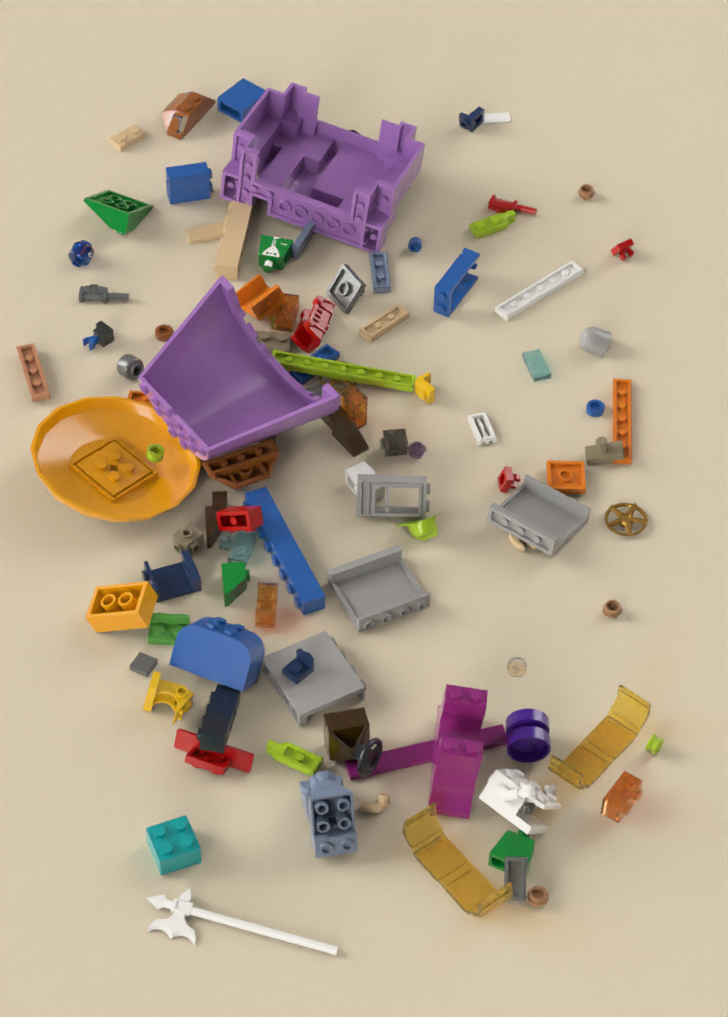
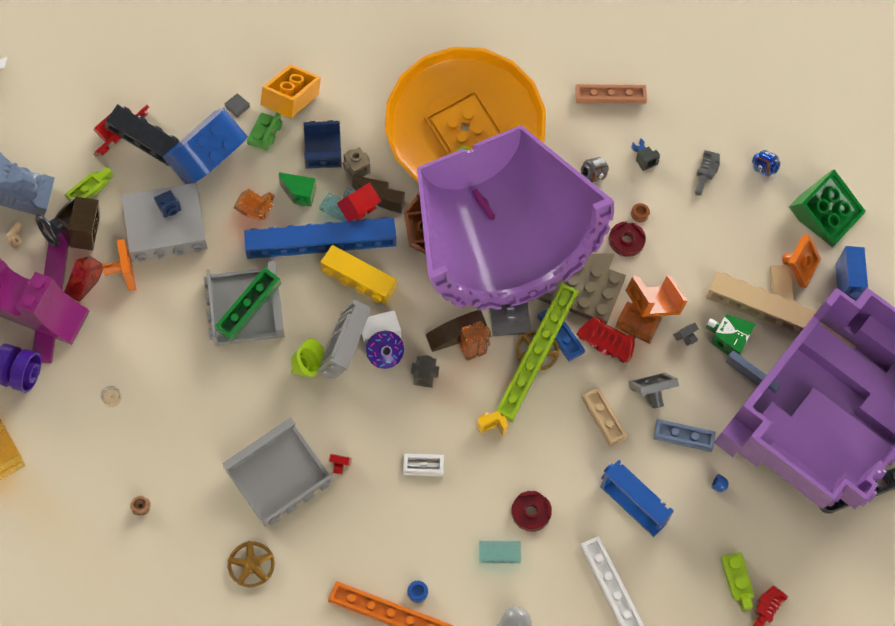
camera: 105 degrees right, 15 degrees up
(170, 693) = (193, 101): yellow tile -> none
(173, 845) = (40, 80): teal brick -> none
(182, 214) = (803, 260): none -> orange tile
(208, 426) = (482, 201): none -> magenta piece
(283, 280) = (687, 334): none -> dark grey tile
(314, 511) = (358, 275): none -> yellow brick
(380, 685) = (123, 265): none -> orange tile
(382, 468) = (375, 348): none -> dark purple dish
(388, 569) = (248, 304): none -> green brick
(403, 723) = (83, 277): none -> clear red slope
(416, 450) = (412, 396): plate -> none
(491, 360) = (526, 521): none -> dark red tile
(566, 476) = (325, 522): orange plate -> none
(604, 451) = (345, 573): dark tan tile -> none

